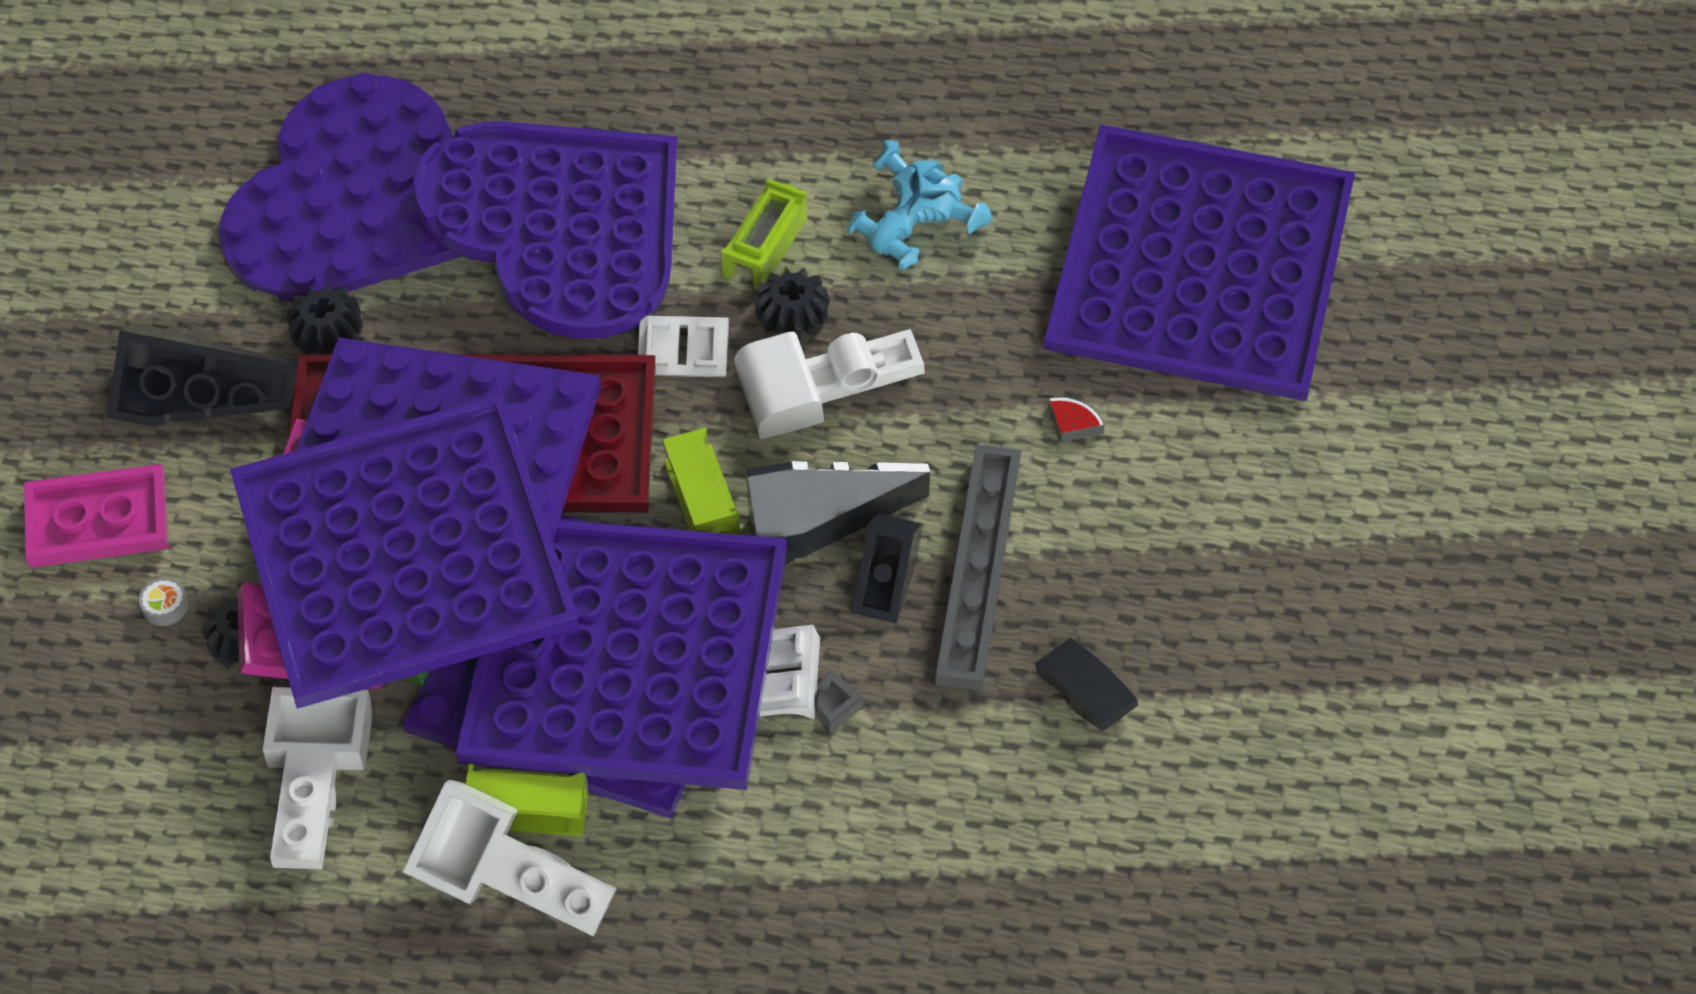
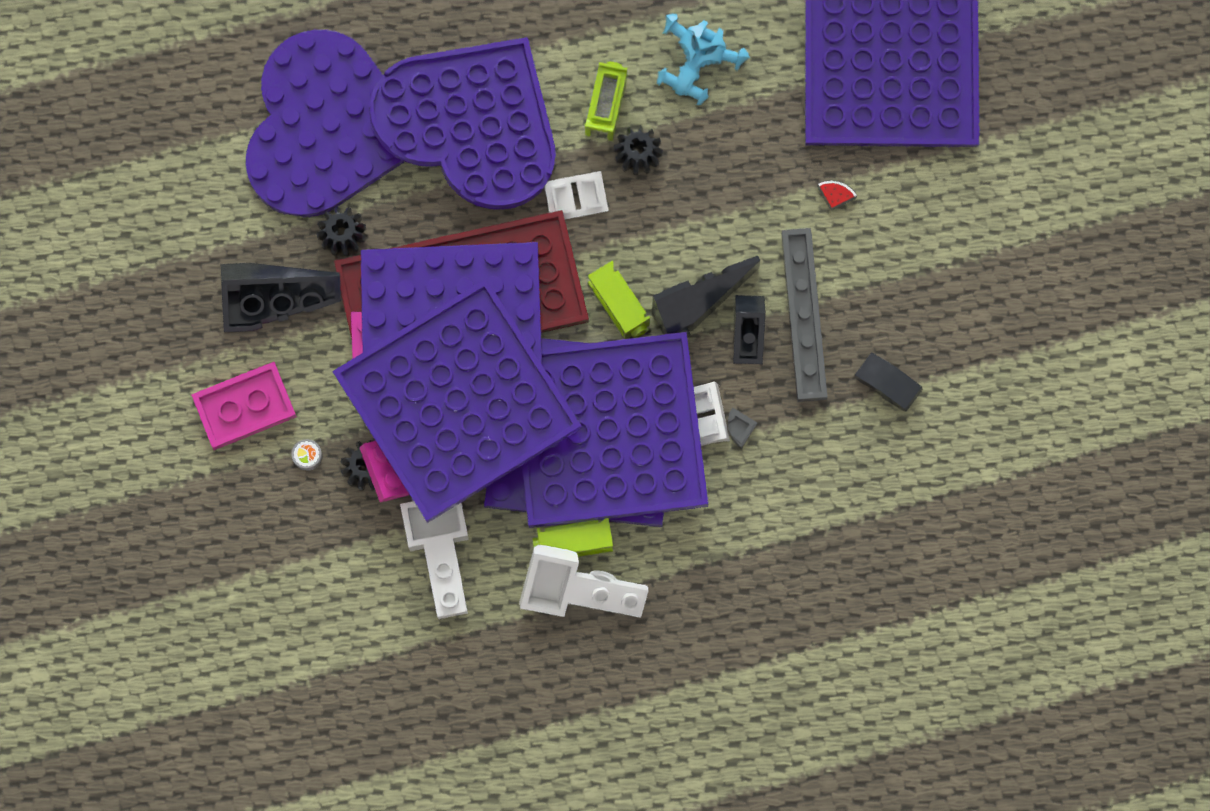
camera: 15 degrees left, 20 degrees up
(789, 391) = (652, 212): white plate -> none

